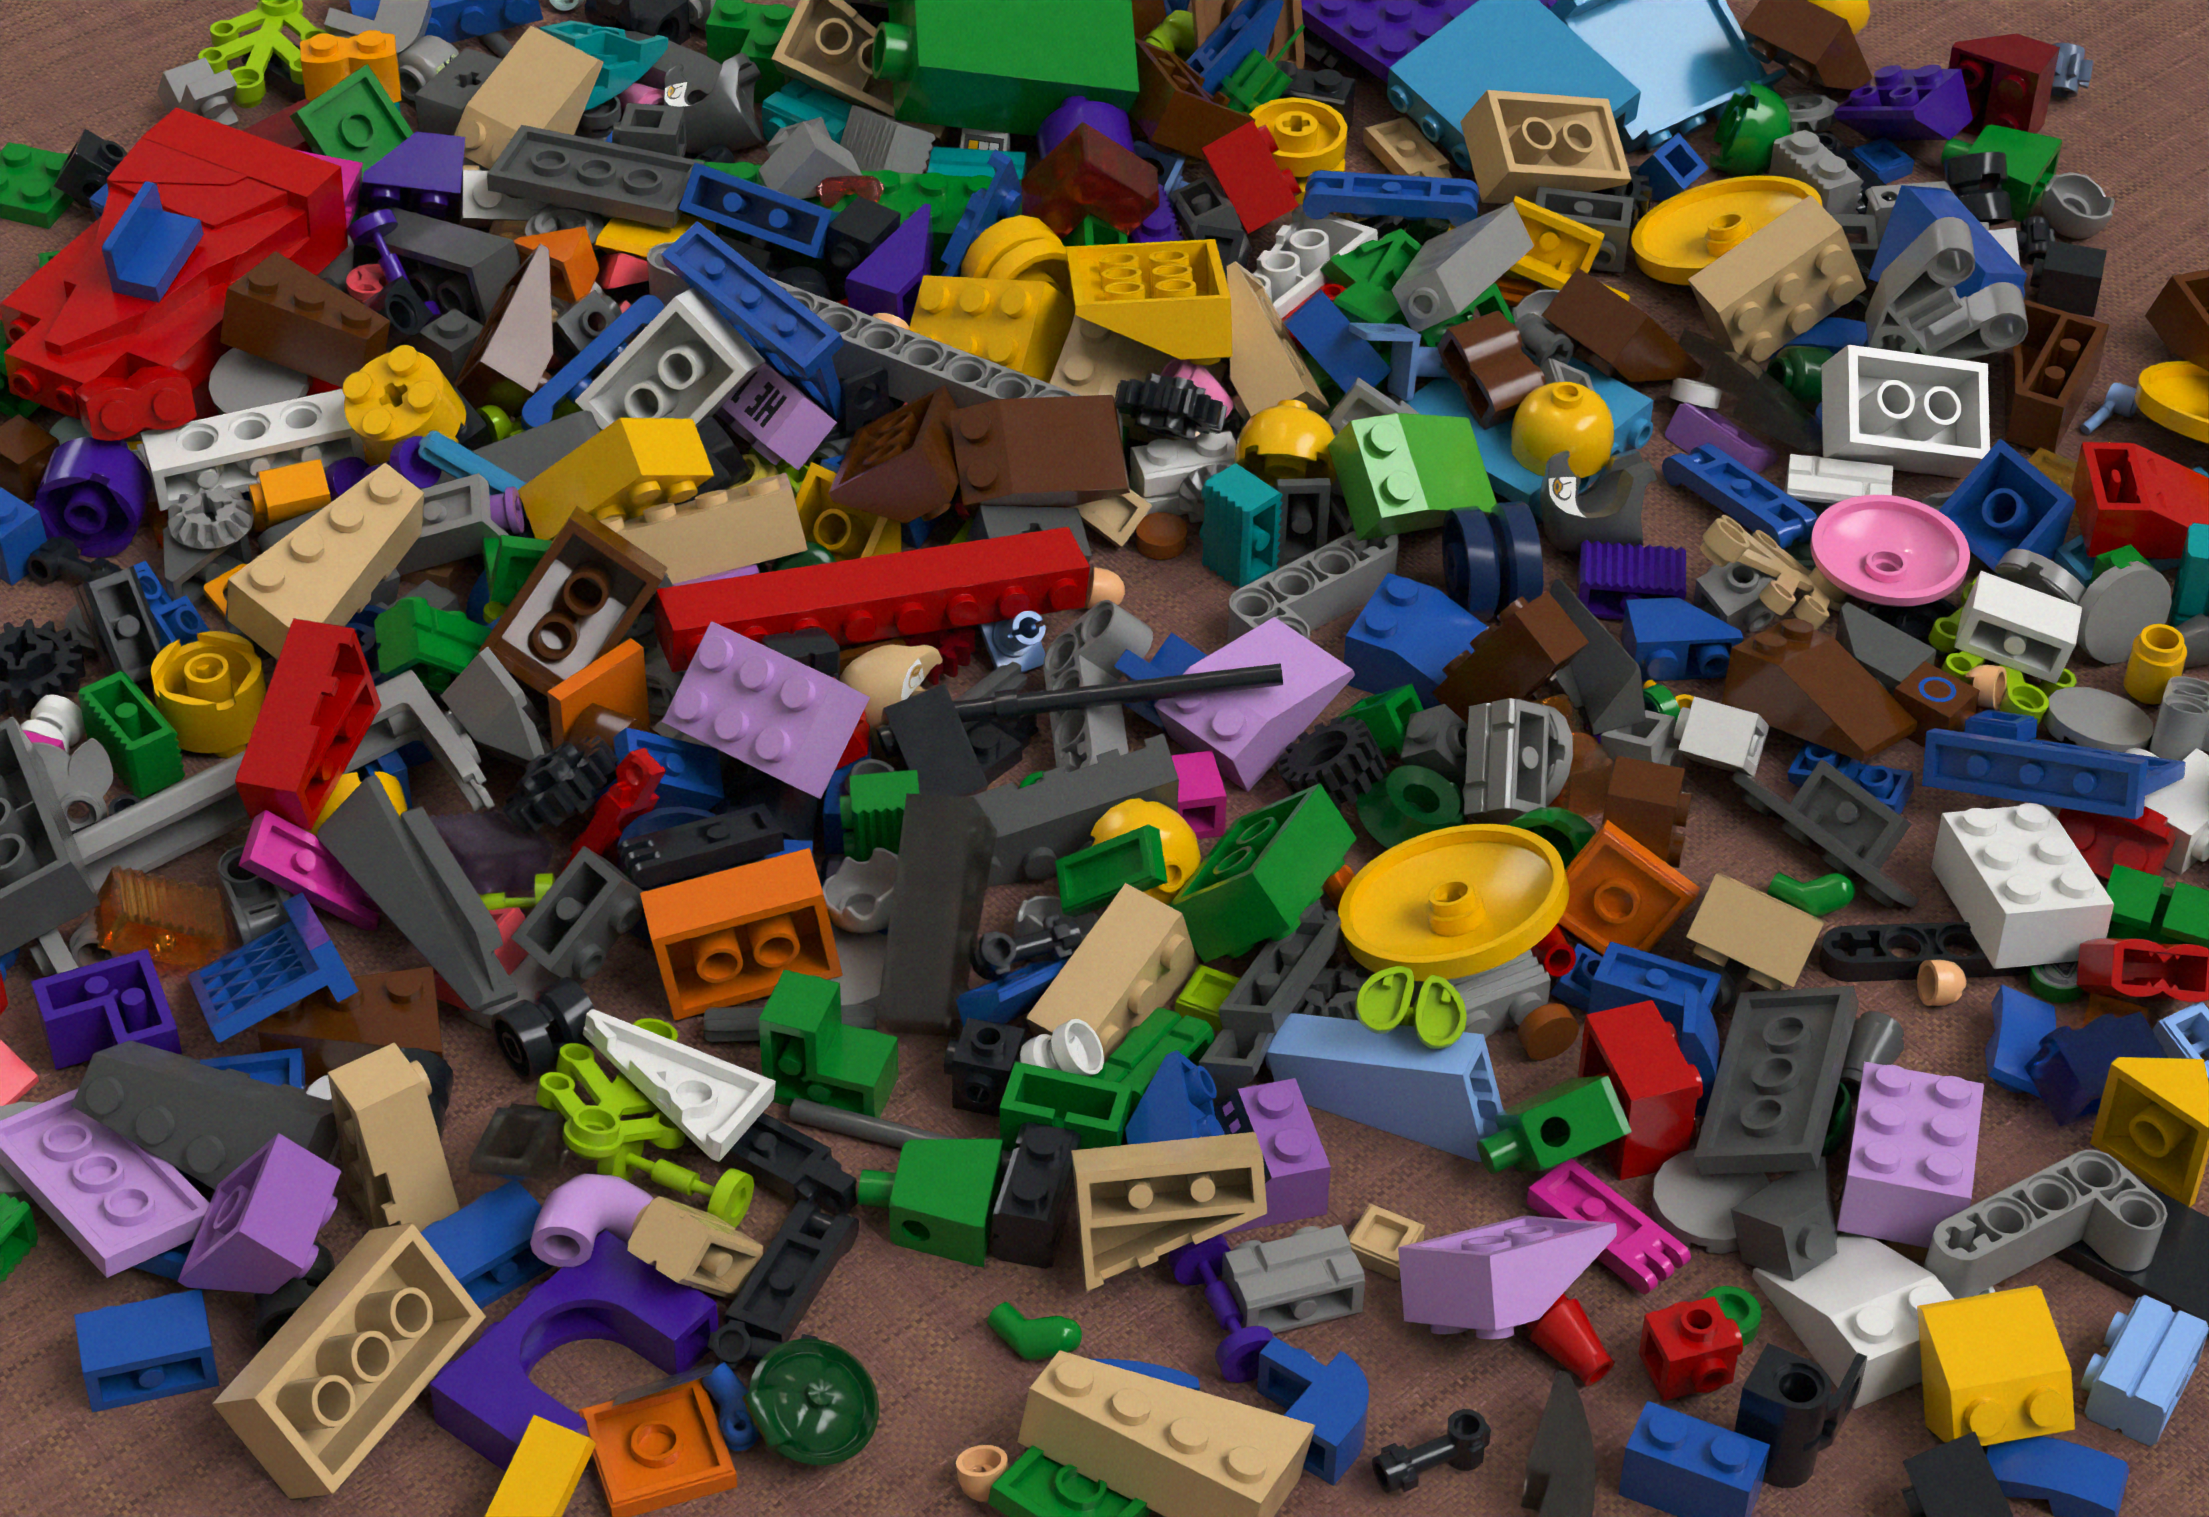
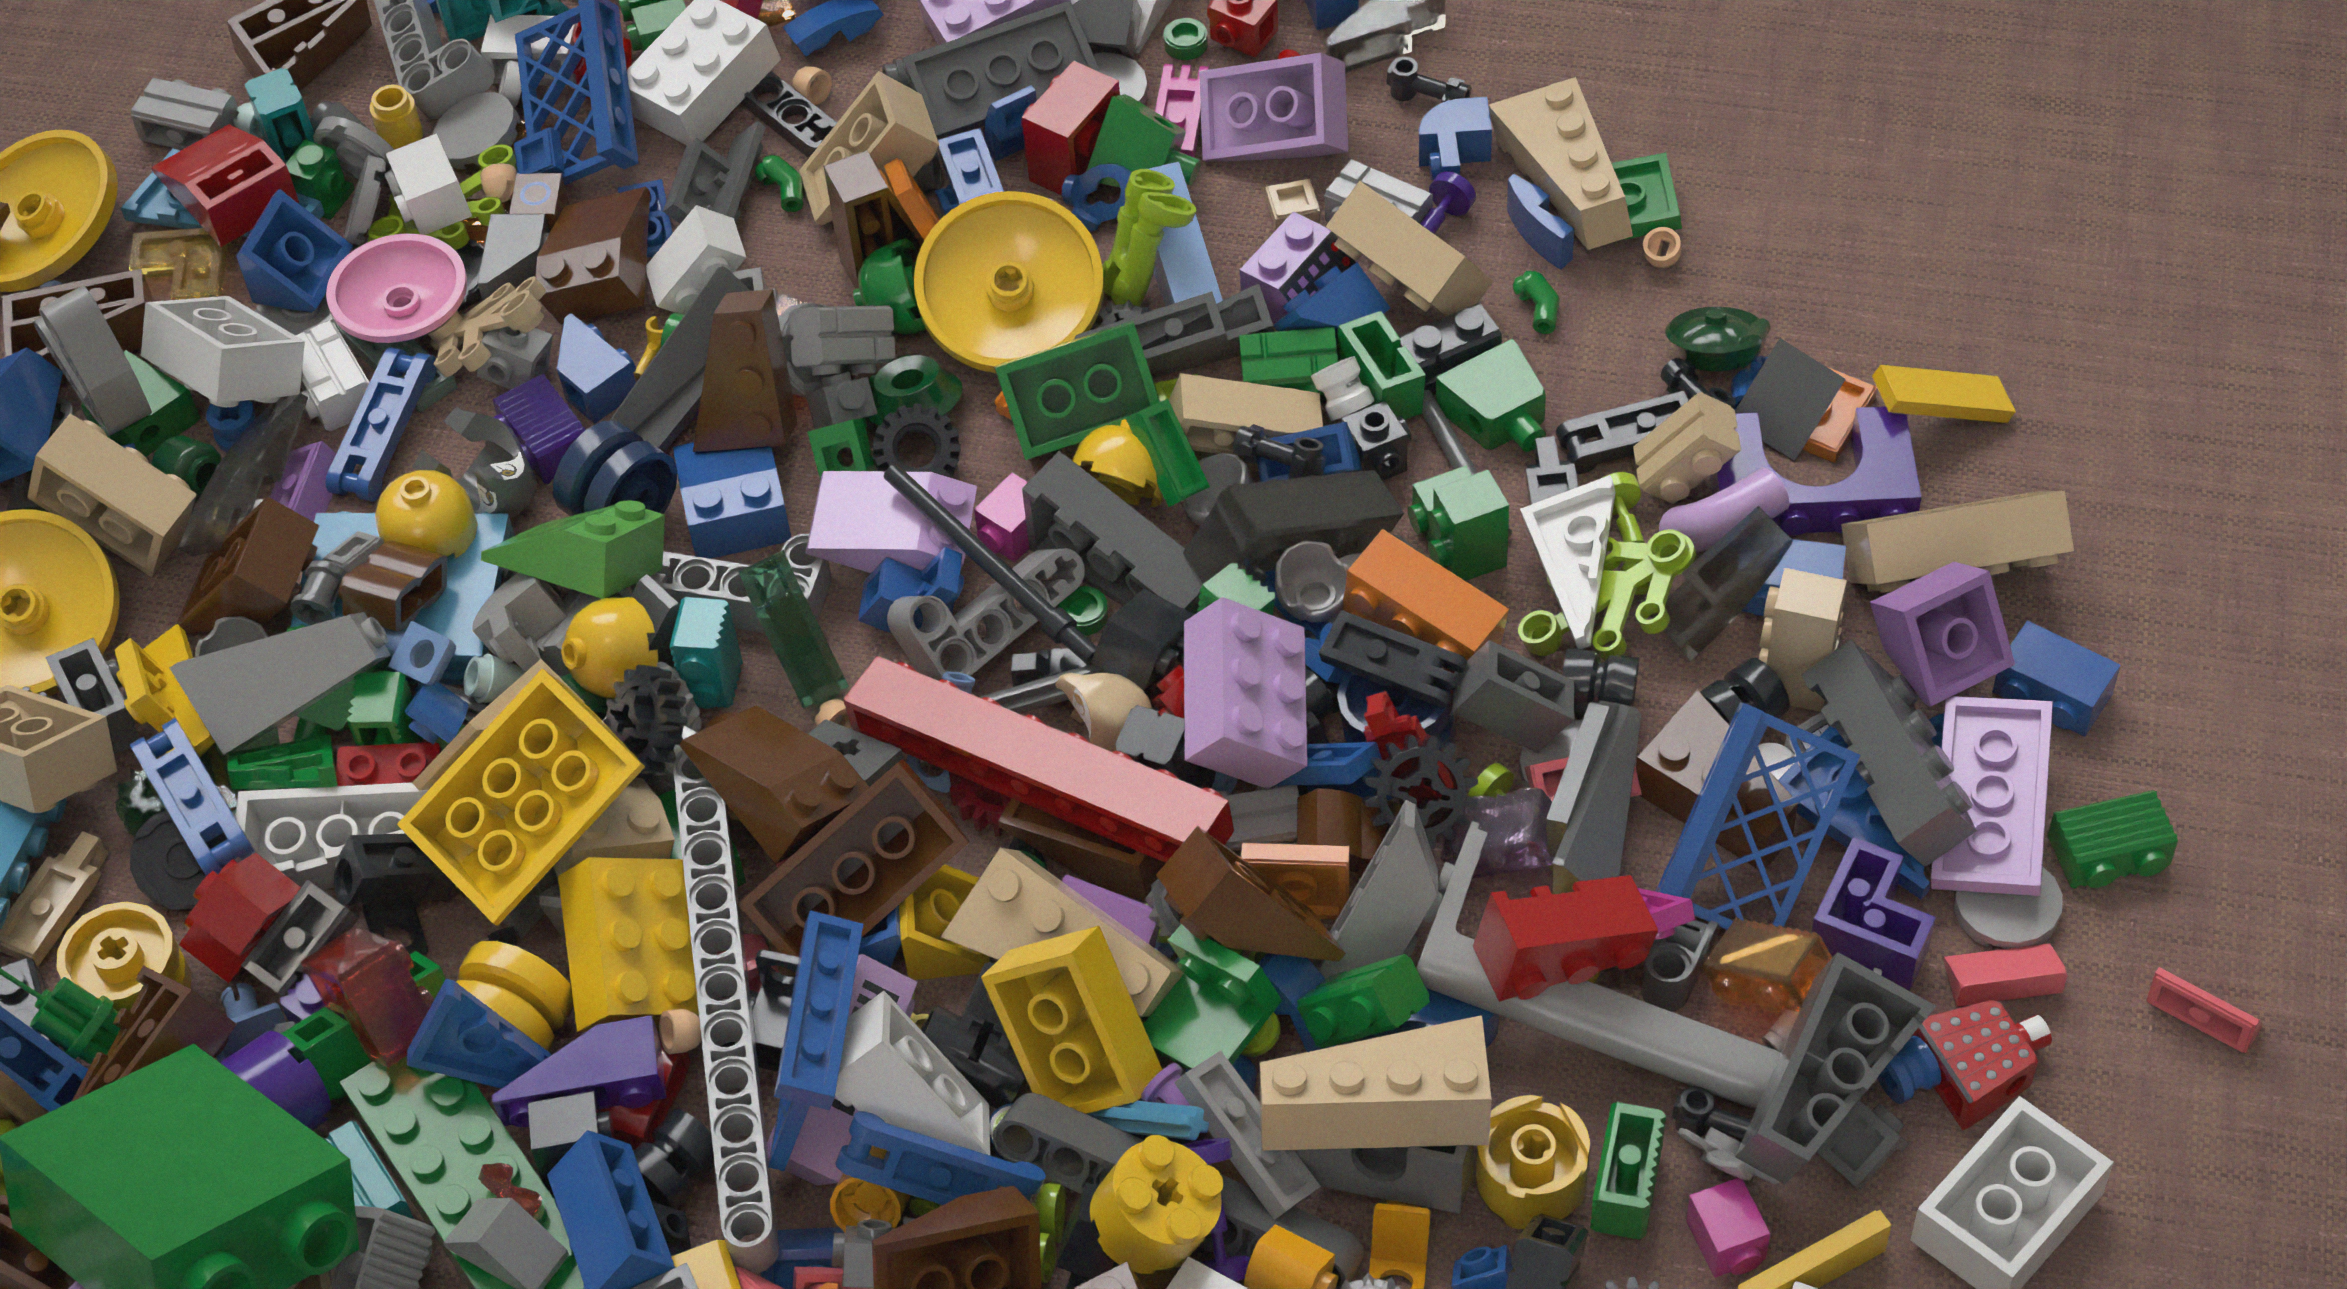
camera: 125 degrees left, 10 degrees up
(57, 719) = (1675, 1249): white wheel -> none
(1201, 566) = (793, 630): none -> clear green slope
(1537, 1074) = (1077, 187): none -> blue piece

